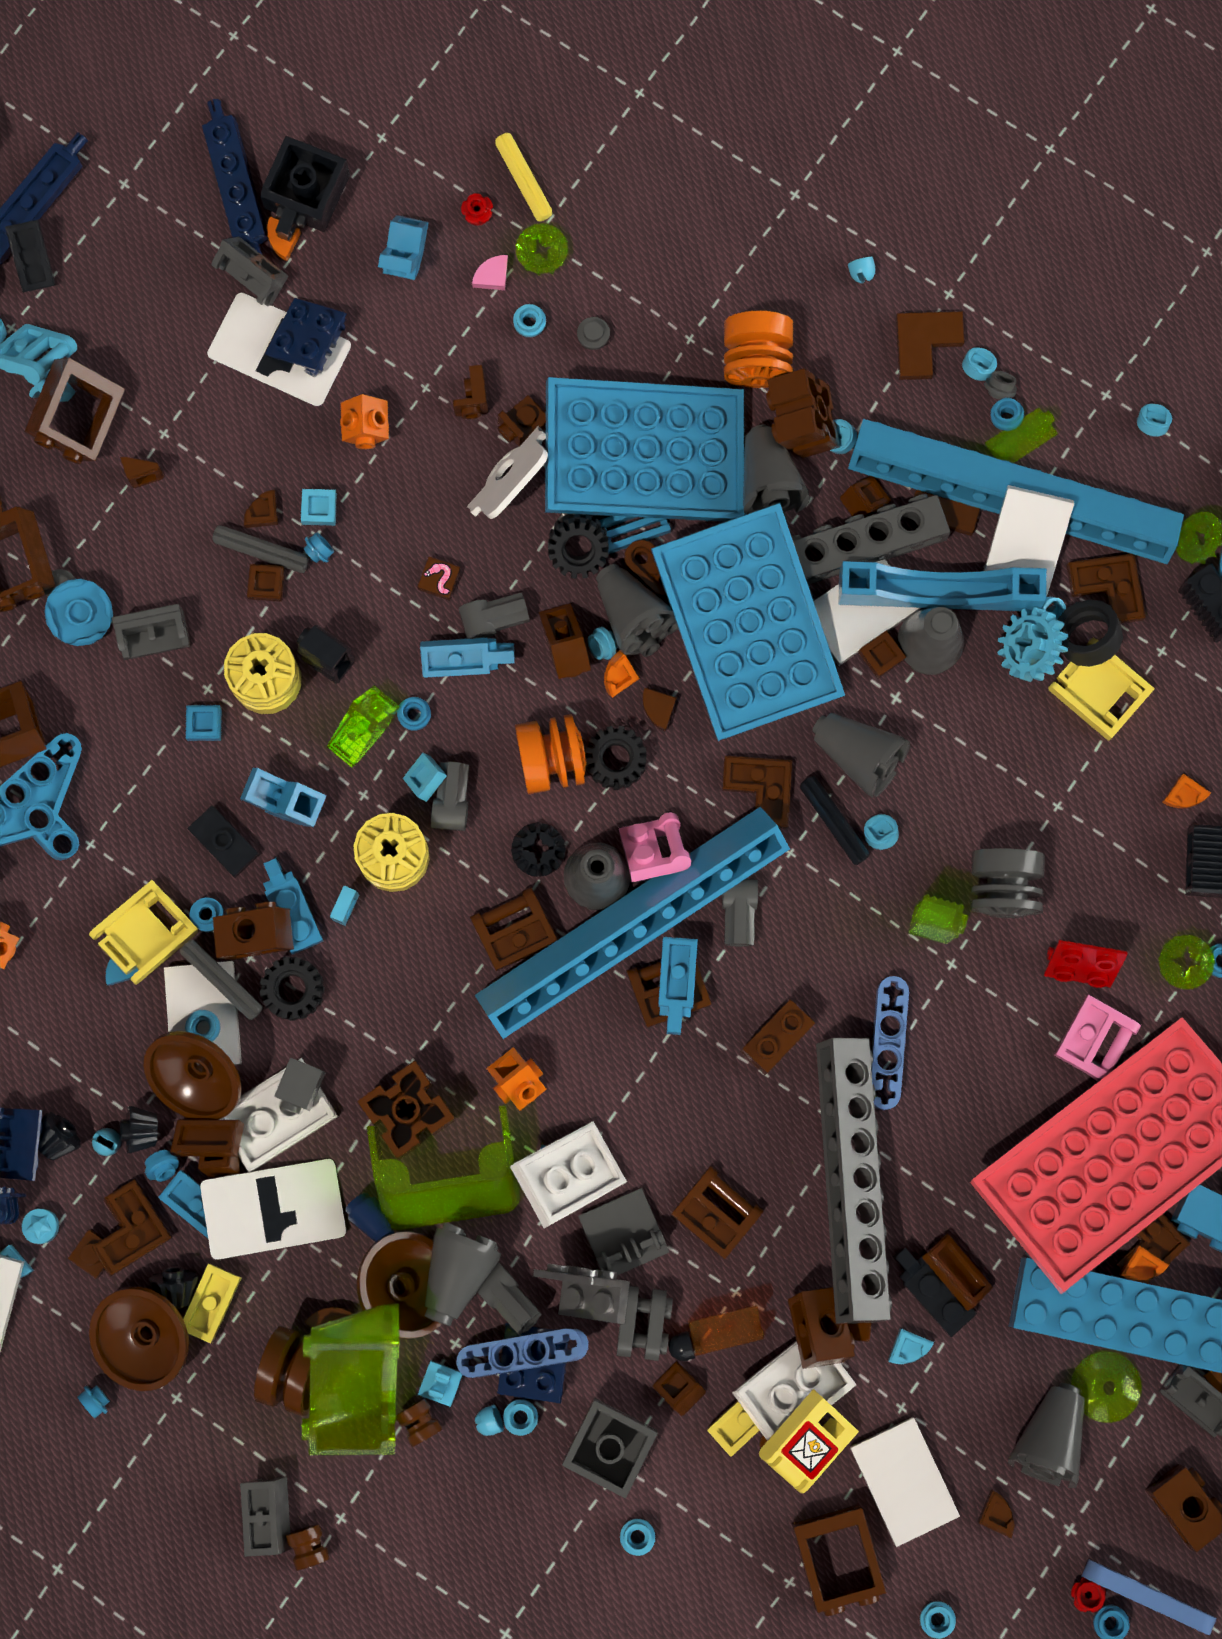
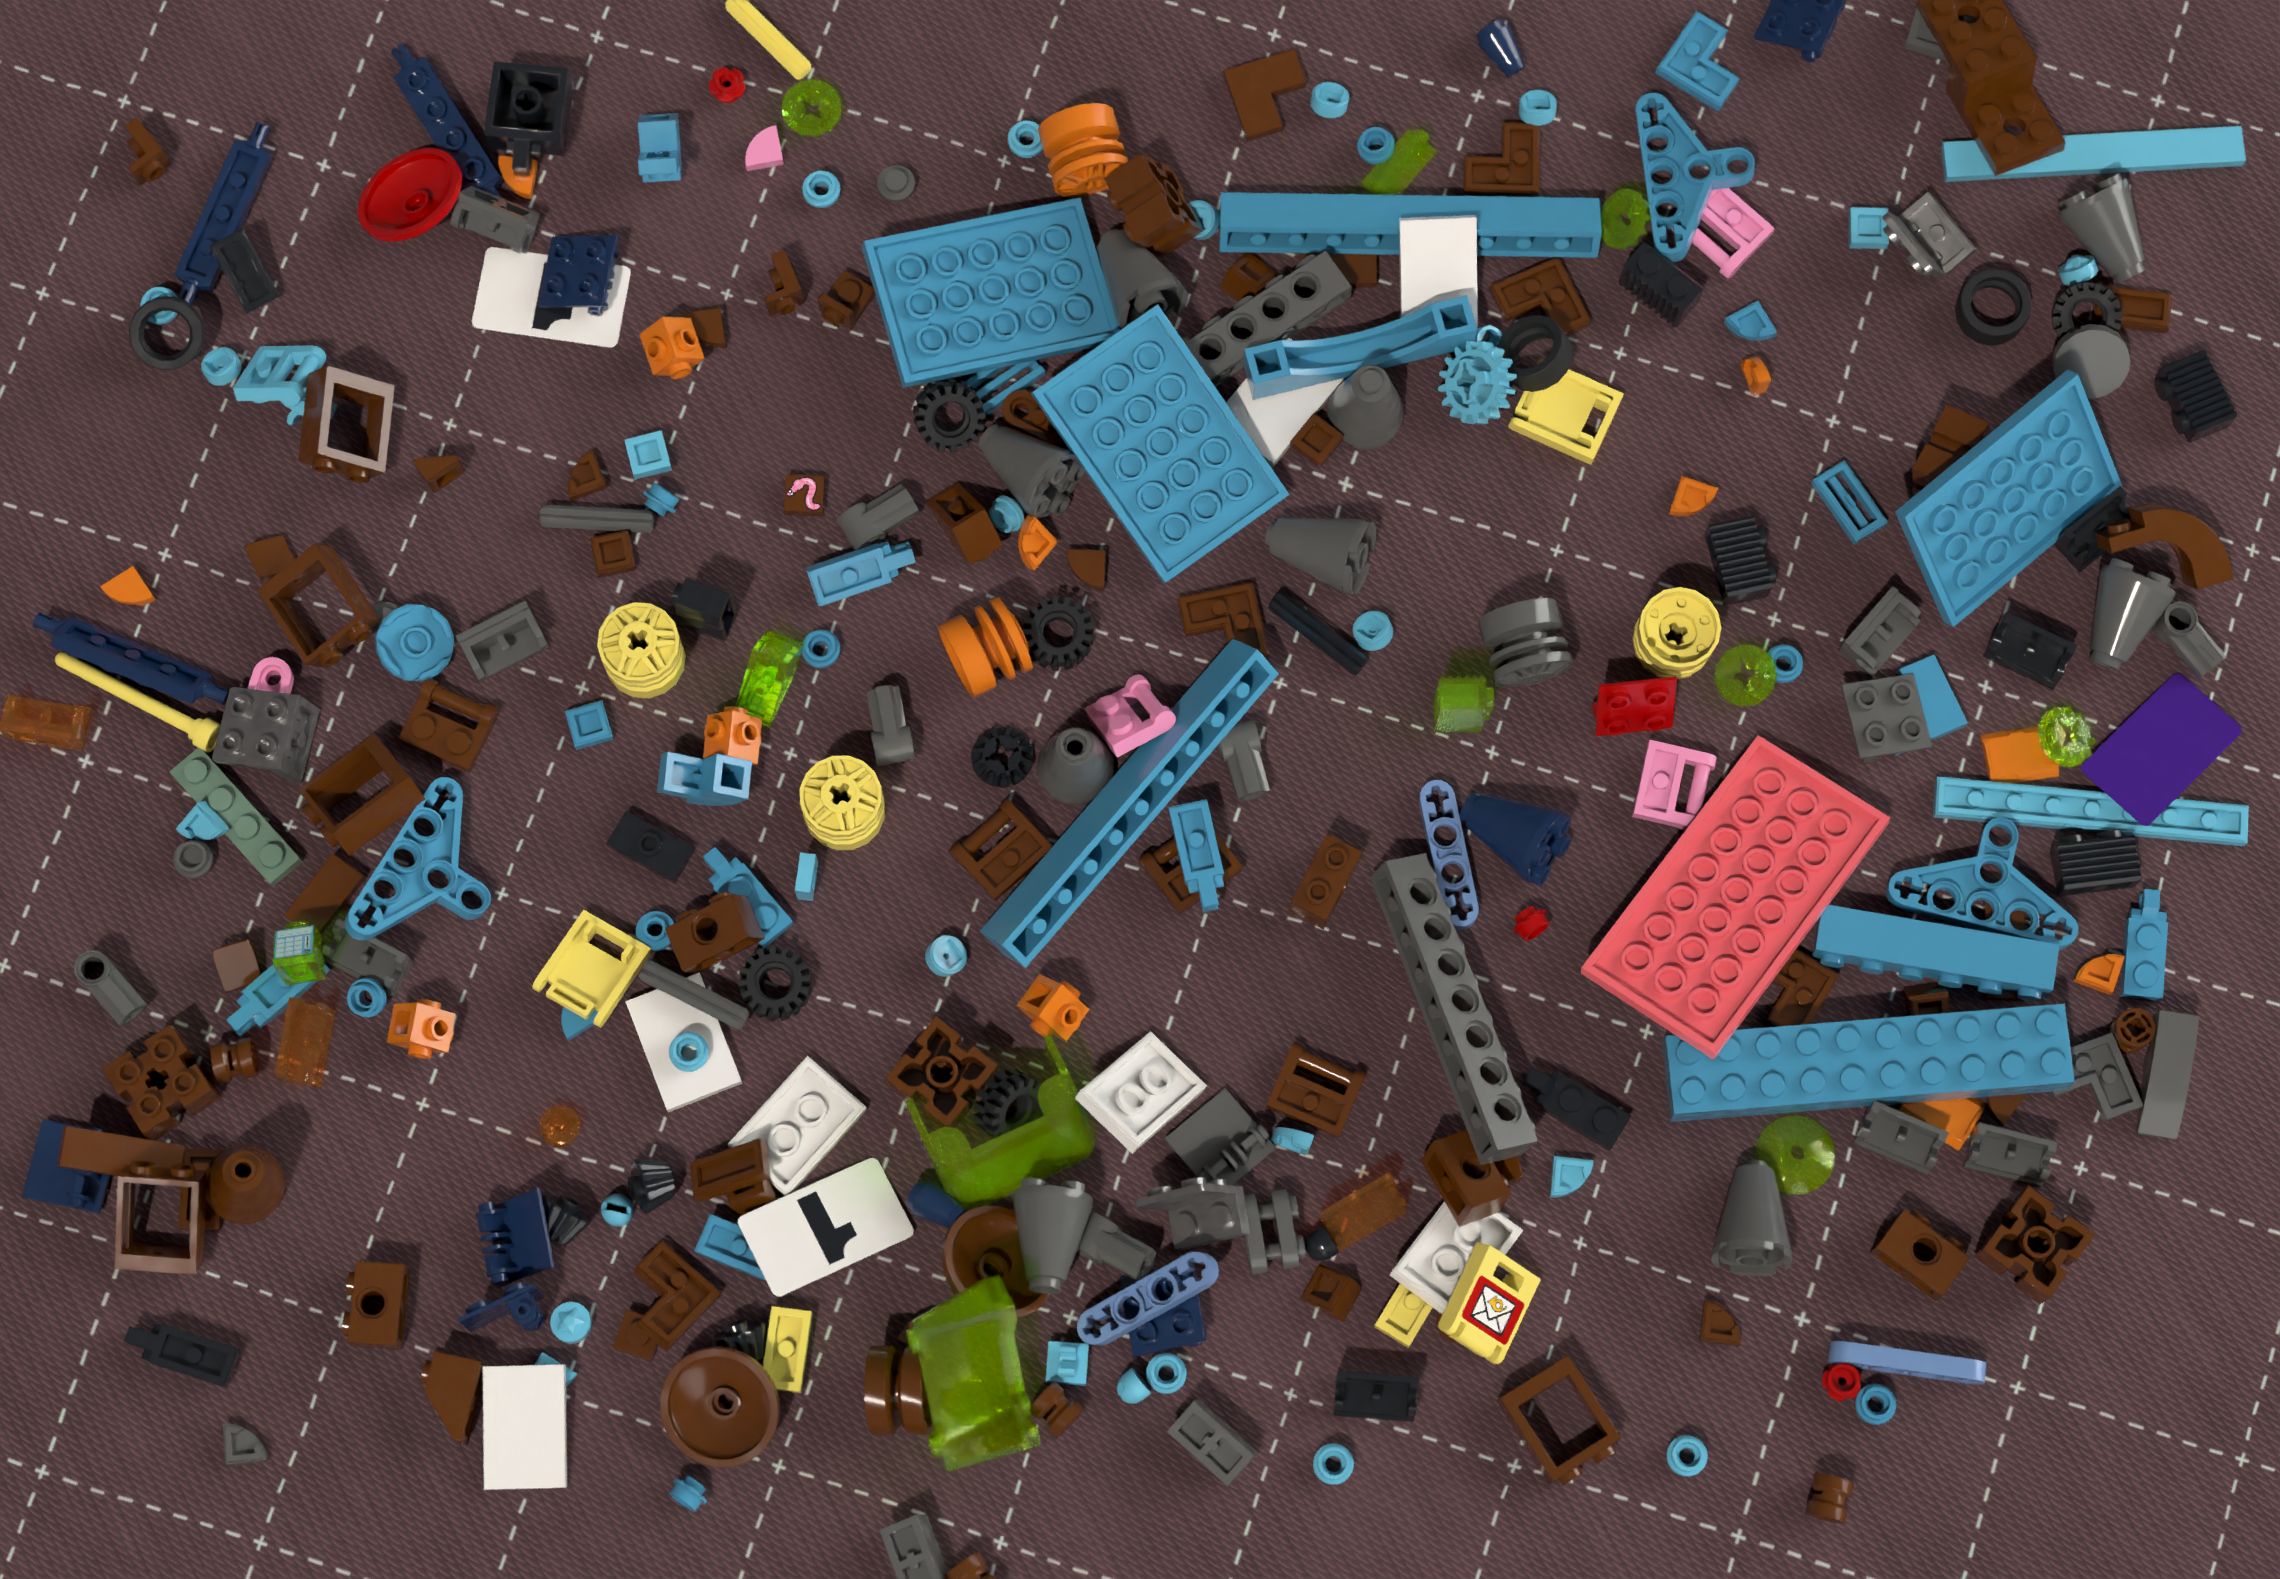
camera: 15 degrees left, 5 degrees down
(79, 697) = (445, 737): none -> reddish brown plate
(79, 1057) = (559, 1126): none -> clear orange tile
(161, 1166) = (687, 1216): dark azure plate -> none
(184, 230) = (410, 195): none -> red dish
(192, 1075) = (691, 1119): reddish brown dish -> none
(299, 1086) = (815, 1082): dark grey brick -> none
(317, 768) = (733, 734): none -> orange brick
(401, 411) = (708, 326): none -> reddish brown tile
(424, 777) = (853, 712): medium azure tile -> none
(441, 1006) = (946, 956): none -> medium azure tile
(450, 1142) = (1000, 1095): none -> black tyre
(501, 491) = (845, 382): white piece -> none
(542, 1490) = (1212, 1442): none -> dark grey hinge
(609, 1448) = (1274, 1372): dark grey brick -> none
(684, 1249) = (1292, 1140): none -> medium azure tile
(690, 1490) = (1375, 1396): none -> black hinge
(707, 318) = (1020, 130): none -> medium azure plate
(862, 269) = (1171, 32): medium azure hinge -> none
(904, 1481) = (1606, 1319): white tile -> none
(941, 1122) = (1531, 923): none -> red plate
(953, 1043) = (1519, 833): none -> dark blue cone
(957, 1272) = (1596, 1077): reddish brown tile -> none
(1001, 385) = (1360, 116): dark grey plate -> none
(1117, 470) = (1511, 174): none -> reddish brown tile
(1138, 359) = (1500, 46): none -> dark blue cone
(1142, 1266) = (1795, 1009): orange tile -> none
(1158, 905) = (1686, 614): none -> light yellow wheel

